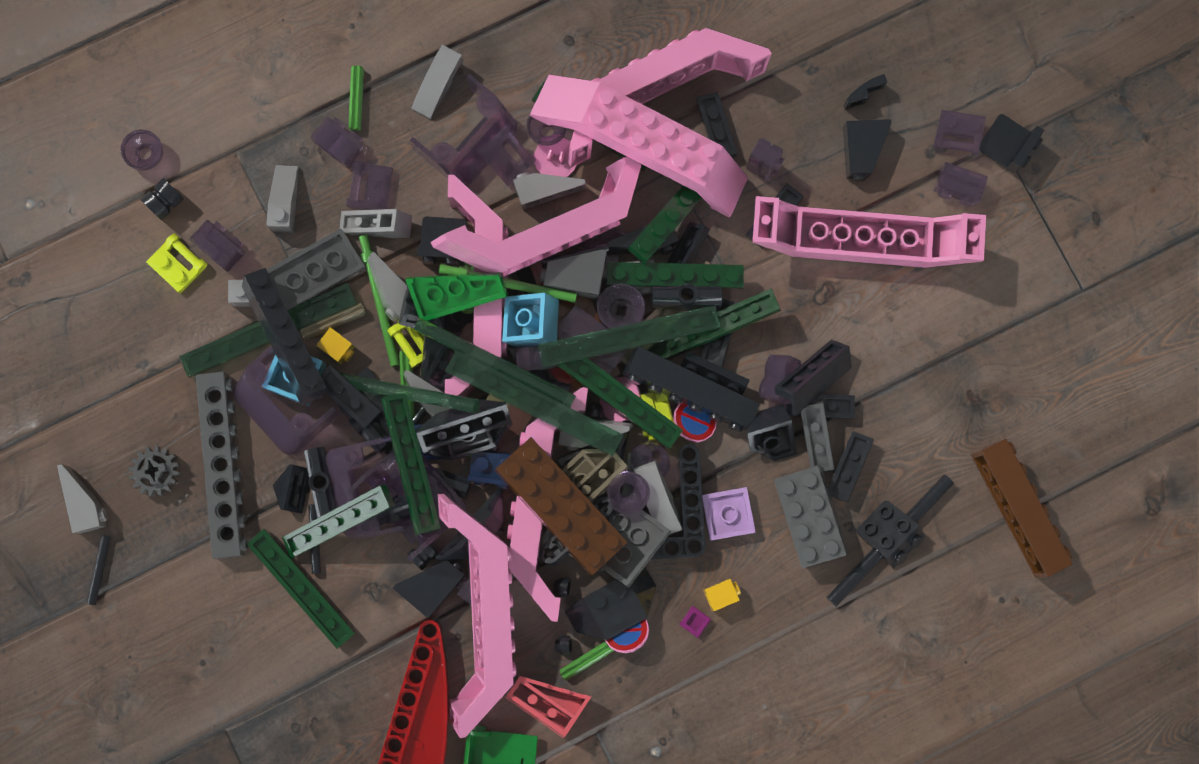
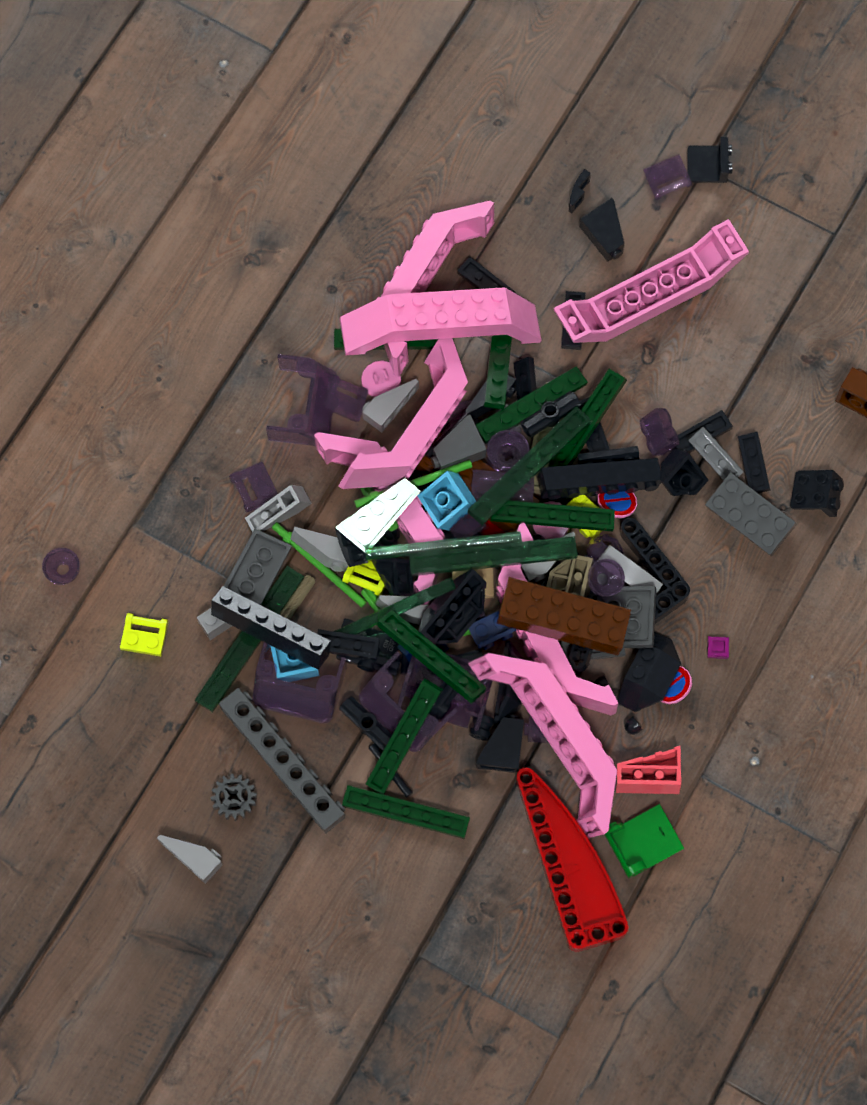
camera: 25 degrees left, 10 degrees down
(98, 570) = (239, 900): black bar -> none
(162, 199) = (102, 590): black wheel -> none
(217, 245) = (168, 600): clear purple brick -> none
(283, 199) = (195, 536): light grey slope -> none
(292, 488) = (347, 743): black slope -> none
(336, 346) = (311, 616): yellow brick -> none
(337, 142) = (208, 468): clear purple brick -> none
(356, 97) = (199, 428): bright green axle -> none
(432, 229) = (331, 495): black bracket -> none
(437, 82) = (254, 378): light grey slope -> none
(534, 130) = (350, 362): clear purple piece -> none
(585, 661) = (657, 726): bright green axle -> none
(722, 594) = (724, 613): yellow brick -> none
(728, 514) = (689, 553): lavender plate -> none
(765, 159) = (540, 282): clear purple brick -> none
(815, 375) = (683, 411): black panel -> none
(874, 556) = (817, 514): black piece -> none
(960, 184) = (693, 213): clear purple brick -> none

